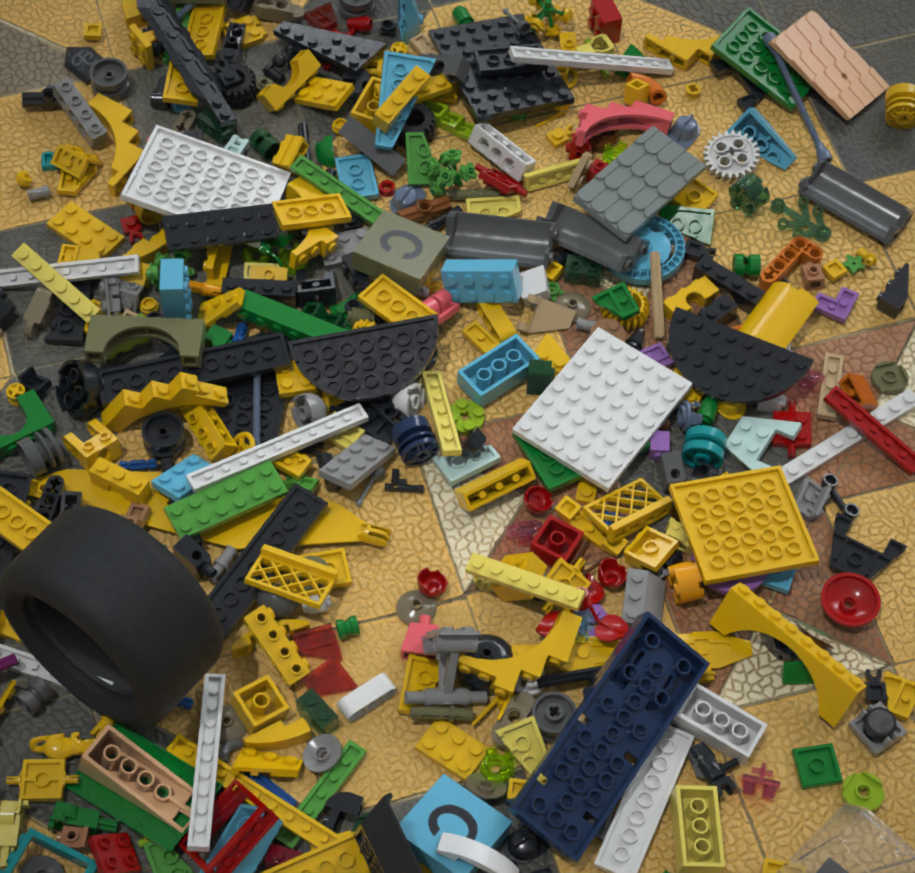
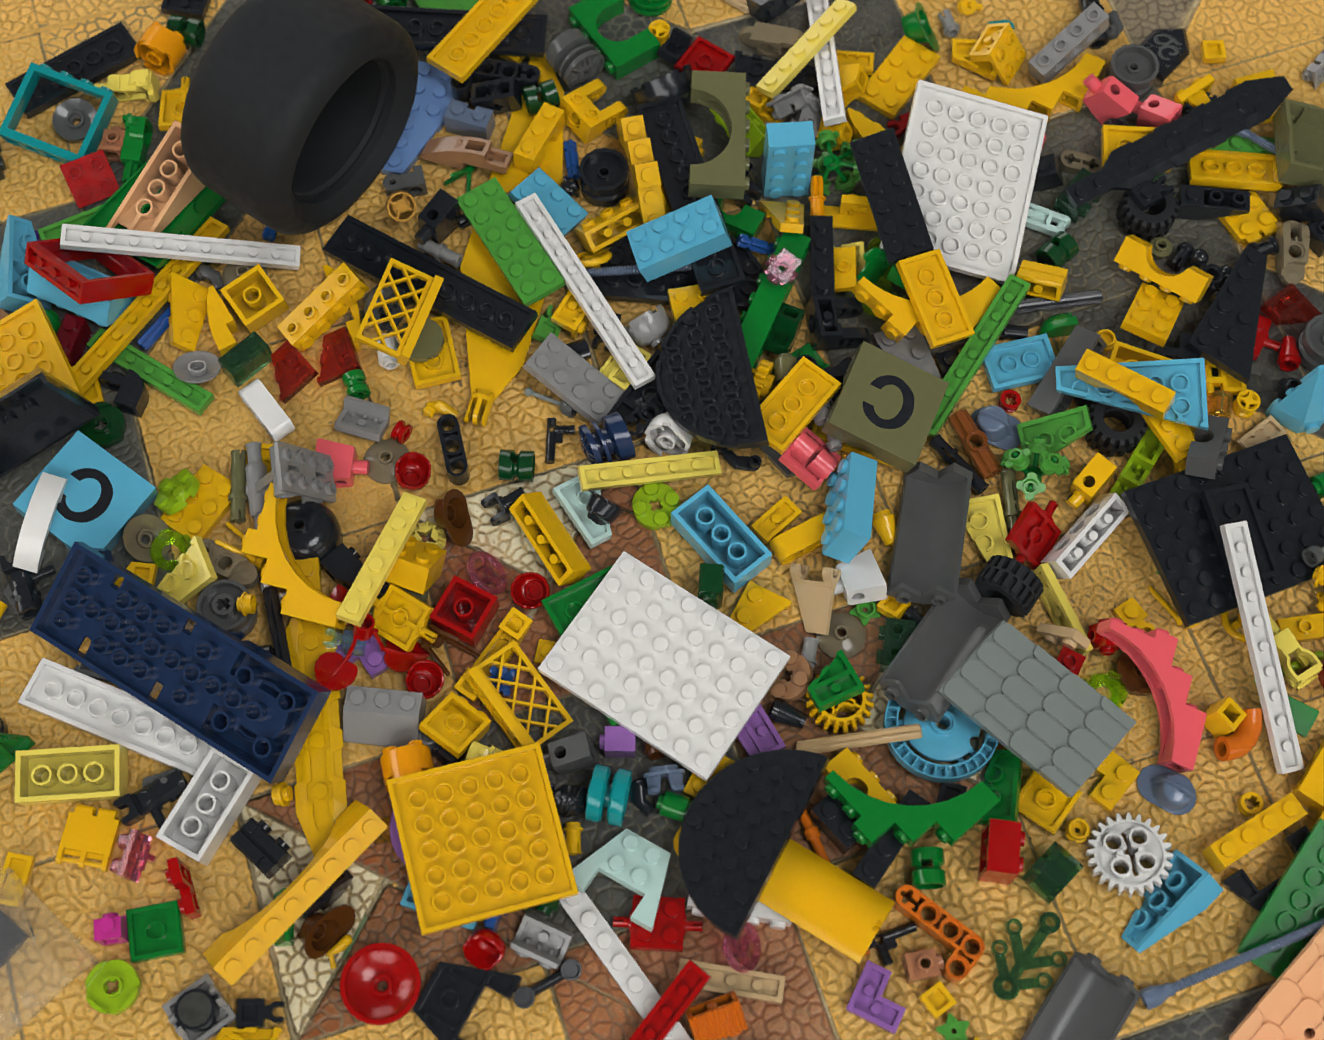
camera: 90 degrees right, 10 degrees up
(41, 212) = (918, 28): none -> green piece
(49, 360) = (705, 57): none -> red plate
(77, 477) = (548, 94): none -> dark green wheel
(137, 92) = (1108, 98): none -> coral torso
(151, 68) = (1156, 111): none -> coral torso
(244, 371) = (679, 238): none -> medium azure brick
(270, 26) = (1266, 246): none -> black bush
(278, 302) = (788, 262): none -> clear pink brick
(370, 571) = (438, 407): none -> yellow arm
(380, 621) = (363, 419): none -> light grey bracket
(393, 593) = (401, 432): none -> red bush
(404, 560) = (456, 459): none -> black beam
(429, 507) = (516, 465): none -> dark green wheel
(452, 752) = (175, 491): none -> lime plate
(459, 138) = (1094, 476): none -> yellow torso
(461, 518) = (504, 502): none -> black piece
(464, 553) = (453, 516): none -> reddish brown piece
(520, 626) = (344, 566): none -> black slope
(541, 193) = (1011, 582): none -> black tyre
(557, 689) = (246, 604): none -> yellow plate
(714, 182) = (1084, 830): none -> yellow plate
(720, 242) = (910, 823): none -> green arch
(725, 101) = (1254, 832): none -> yellow arch
(735, 221) = (1000, 851): none -> red brick
(746, 817) = (89, 837): none -> yellow plate
(749, 688) = (261, 847): none -> black brick
(784, 738) = (180, 877): none -> red plate
(819, 533) = (484, 949): none -> red hair
(819, 794) = (111, 929): none -> dark pink brick
(820, 635) = (340, 946): none -> yellow piece

